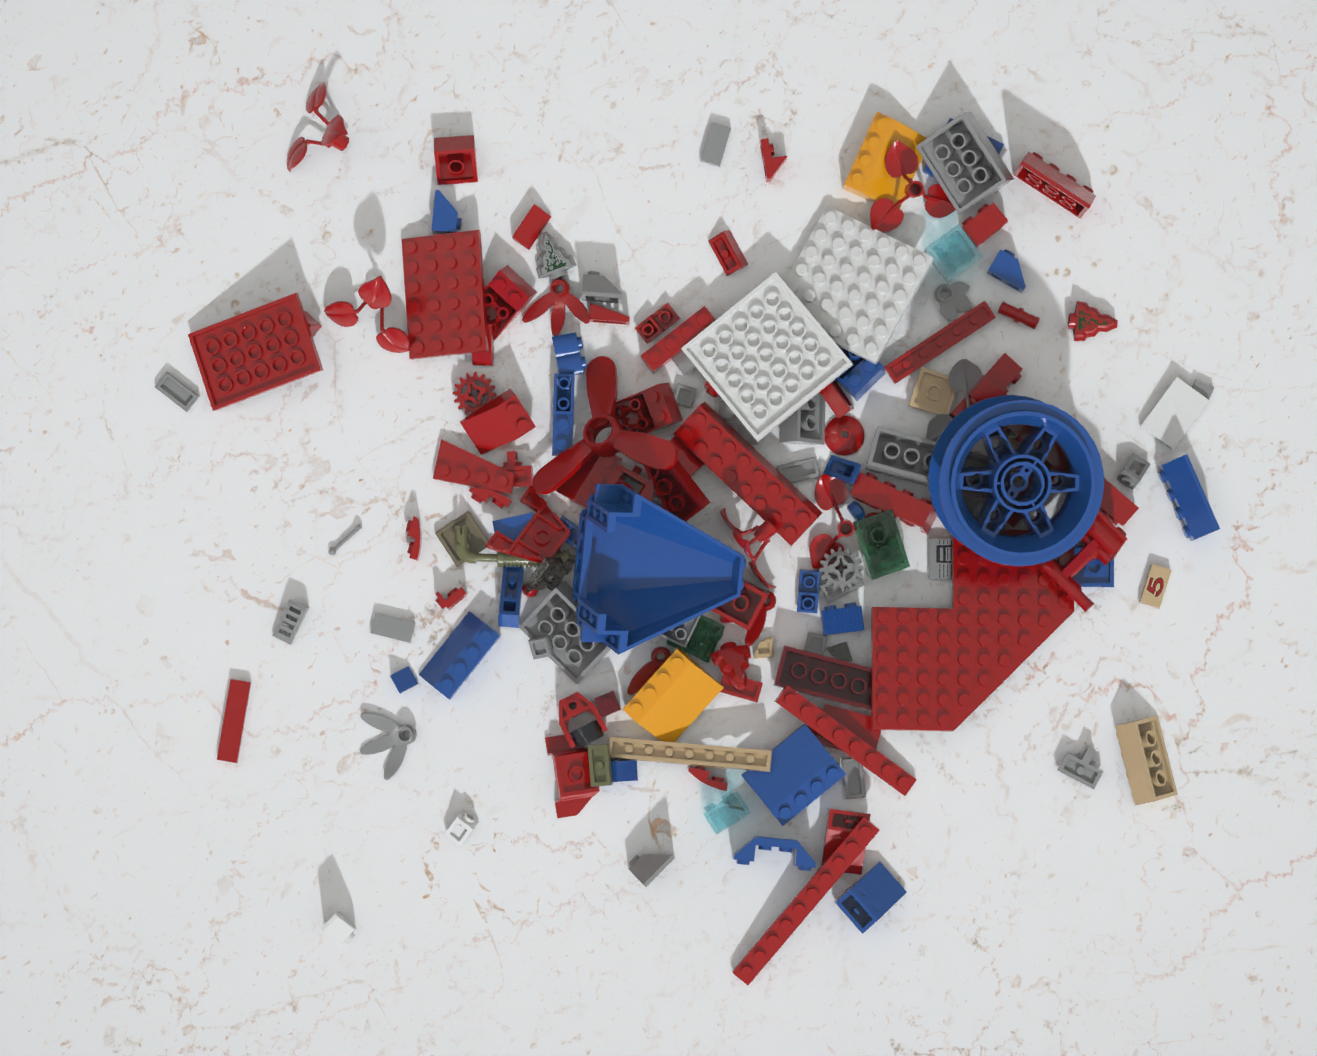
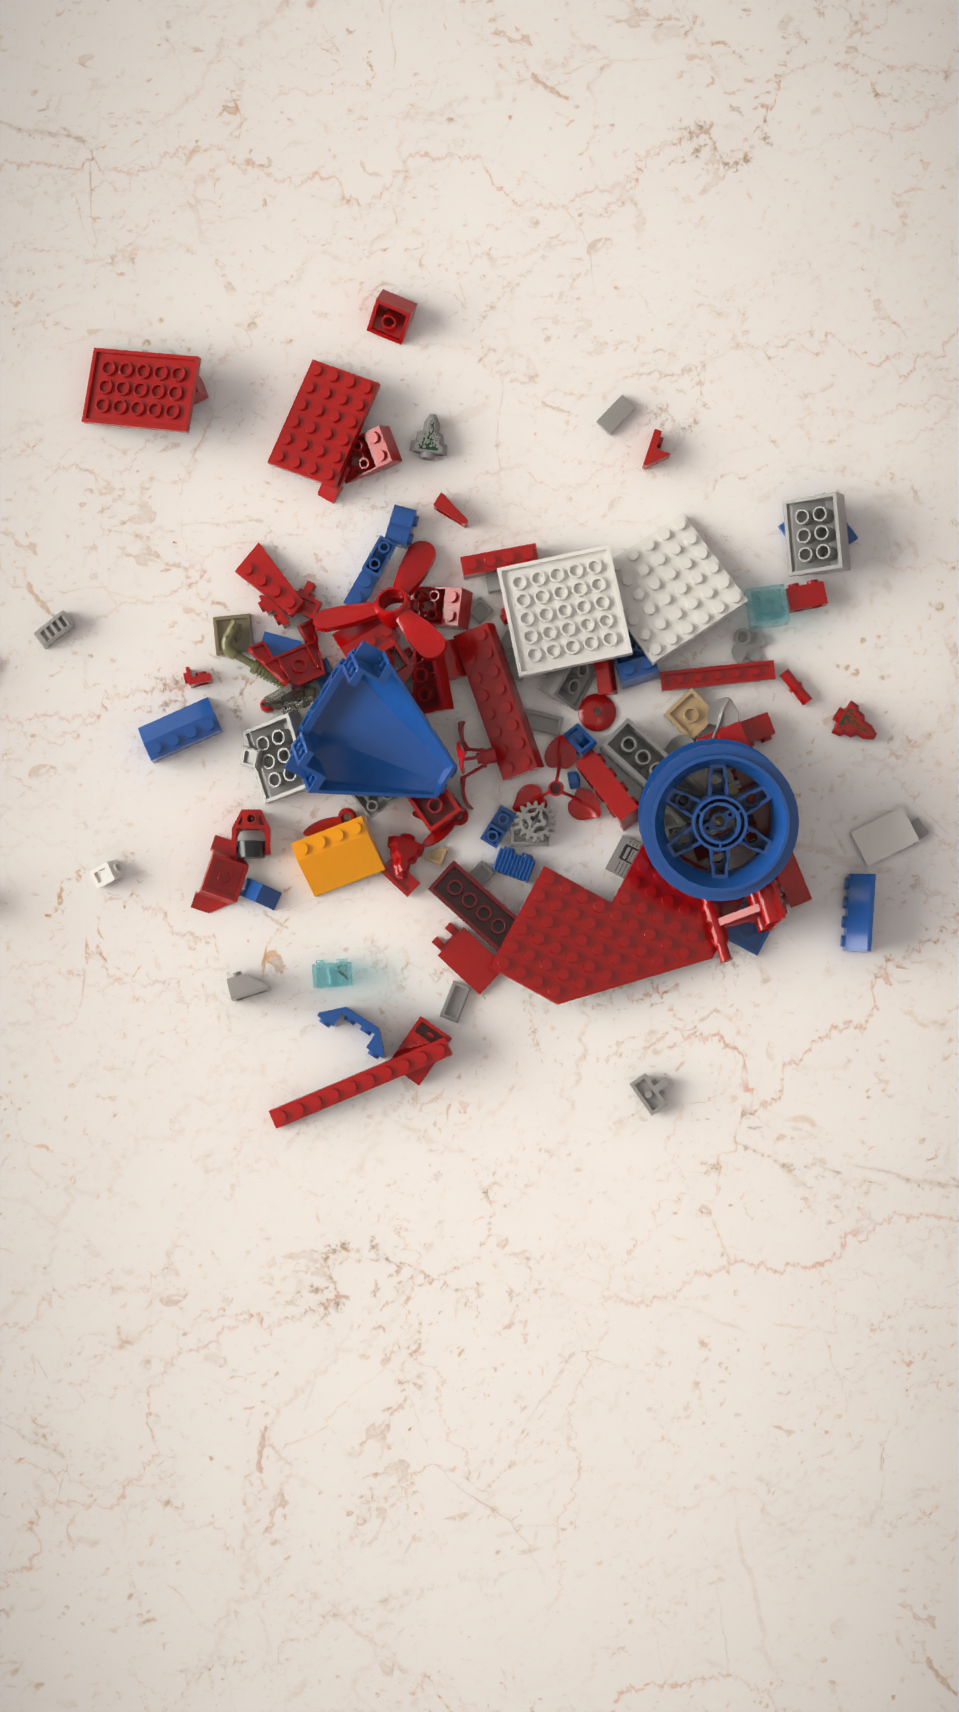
camera: 30 degrees right, 0 degrees up
(177, 391) = (60, 391): light grey tile -> none
(332, 551) = (119, 589): light grey hinge -> none
(333, 136) = (299, 243): red plant -> none
(376, 295) = (265, 392): red plant -> none
(392, 628) = (136, 678): light grey tile -> none
(395, 738) = (90, 771): light grey plant -> none
(404, 679) = (123, 726): blue slope -> none
(414, 530) = (196, 607): red slope -> none
(445, 216) = (357, 359): blue slope -> none
(484, 390) = (298, 518): red gear -> none
(497, 422) = (312, 552): red slope -> none
(510, 596) = (247, 703): blue slope -> none
(531, 227) = (425, 404): red slope -> none
(558, 300) = (416, 478): red plant -> none
(599, 289) = (454, 484): light grey slope -> none
(600, 765) = (247, 880): olive plate -> none
(607, 704) = (281, 833): dark red brick -> none
(657, 323) = (489, 538): red slope -> none
(690, 754) = (328, 910): tan plate -> none
(702, 775) = (329, 933): red slope -> none
(703, 639) = (389, 820): clear green bracket -> none
(728, 252) = (579, 510): red slope -> none
(797, 776) = (405, 972): blue slope -> none
(840, 652) = (499, 891): clear smoke tile -> none
(845, 740) = (464, 966): red plate -> none
(868, 174) = (749, 502): light orange slope -> none
(870, 897) = (416, 1108): blue slope -> none
(880, 544) = (578, 817): clear green slope -> none
(898, 162) = (763, 507): red plant -> none
(1007, 270) = (805, 644): blue slope -> none
(1054, 184) = (882, 592): slope -> none
(1133, 471) = (824, 867): light grey bracket -> none
(1146, 760) = (708, 1114): tan slope -> none
(1155, 586) = (792, 972): tan tile -> none

